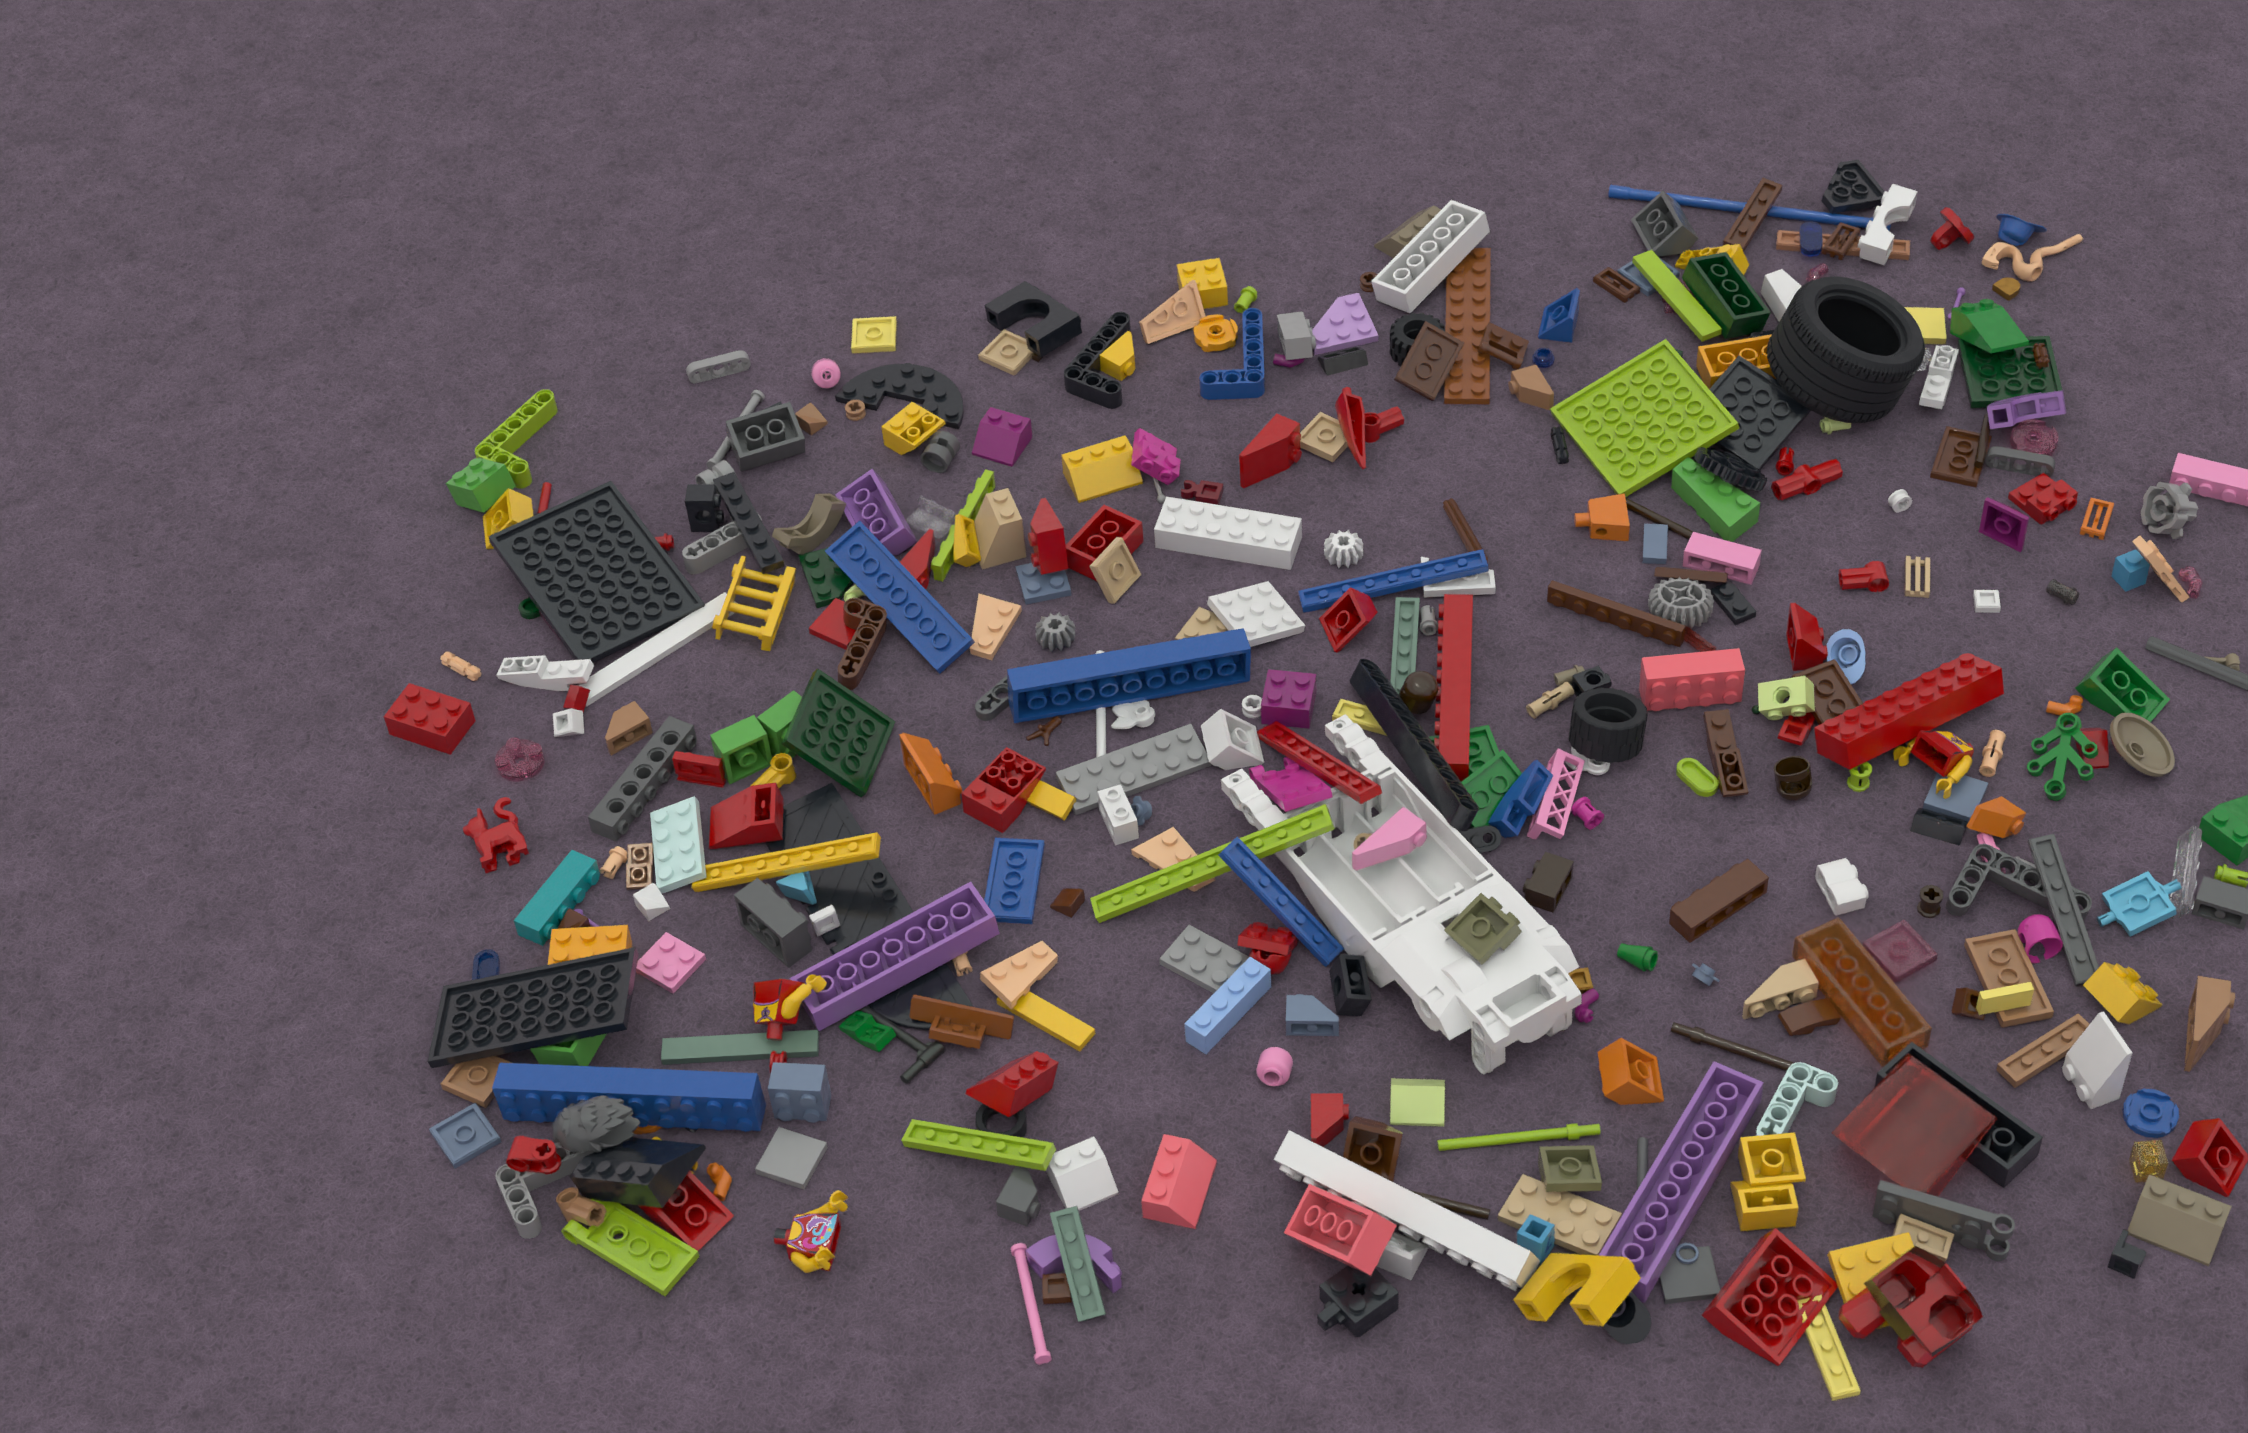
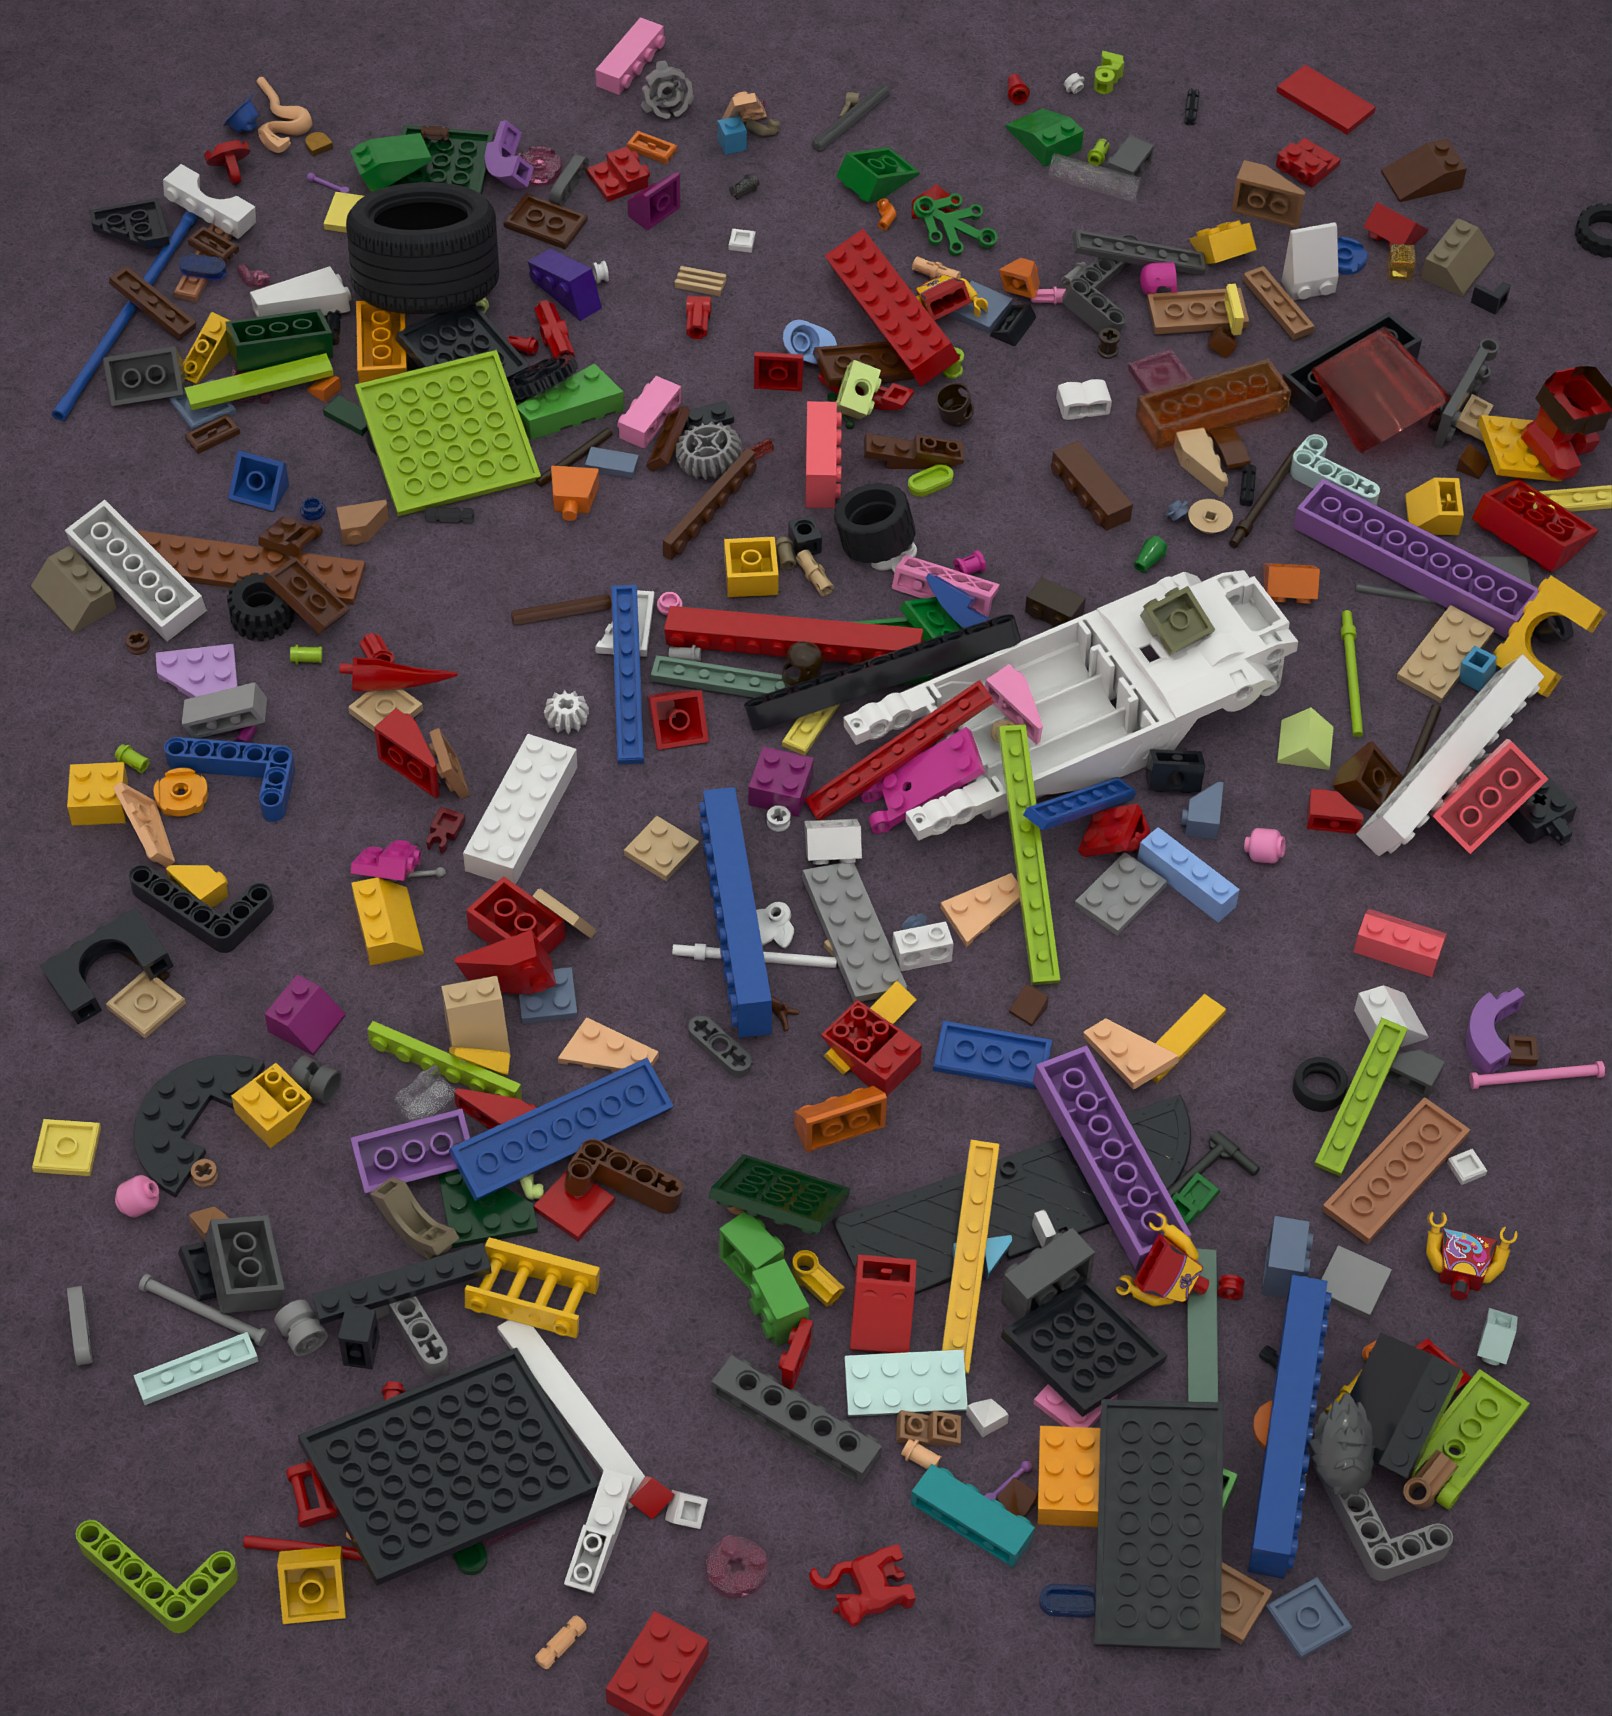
camera: 90 degrees left, 5 degrees up
(480, 484) = (242, 1613): bright green brick -> none
(531, 1154) = (1371, 1521): red piece -> none
(627, 727) = (708, 1438): medium nougat slope -> none
(684, 433) = (196, 1368): none -> light aqua plate
(709, 955) = (1083, 1346): none -> black plate
(735, 1266) = (1497, 1337): none -> light aqua slope
(911, 1186) = (1395, 1170): none -> nougat plate
(921, 1246) = (1466, 1166): none -> white tile
(959, 1022) = (1197, 1111): dark orange bracket -> none
(1016, 1083) = (1285, 1058): red slope -> none
(1055, 631) = (637, 985): light grey gear -> none
(1078, 1263) = (1510, 1018): sand green plate -> none
(1258, 611) = (649, 798): white plate -> none
(1262, 477) = (449, 764): none -> medium nougat plate
(1343, 360) = (260, 671): pearl dark grey slope -> none
(1375, 376) = (305, 654): none -> lime pin
(1488, 603) = (666, 600): none -> bright pink plate
(1537, 647) = (751, 567): none -> yellow brick
(1569, 1168) = (1402, 633): olive plate -> none
(1690, 343) = (325, 388): none -> orange slope
(1704, 994) = (1210, 516): none -> tan piece
(1762, 1036) = (1248, 485): none -> black axle
(1770, 1159) = (1404, 491): yellow slope -> none
(1853, 1234) = (1472, 462): none -> reddish brown slope
(1870, 473) = (566, 282): none -> dark purple wedge
(1983, 442) = (536, 197): dark brown bar -> none
(2139, 903) = (1126, 210): medium azure plate -> none
(2141, 745) = (951, 172): dark tan dish -> none
(2157, 599) = (763, 130): none -> dark tan arm

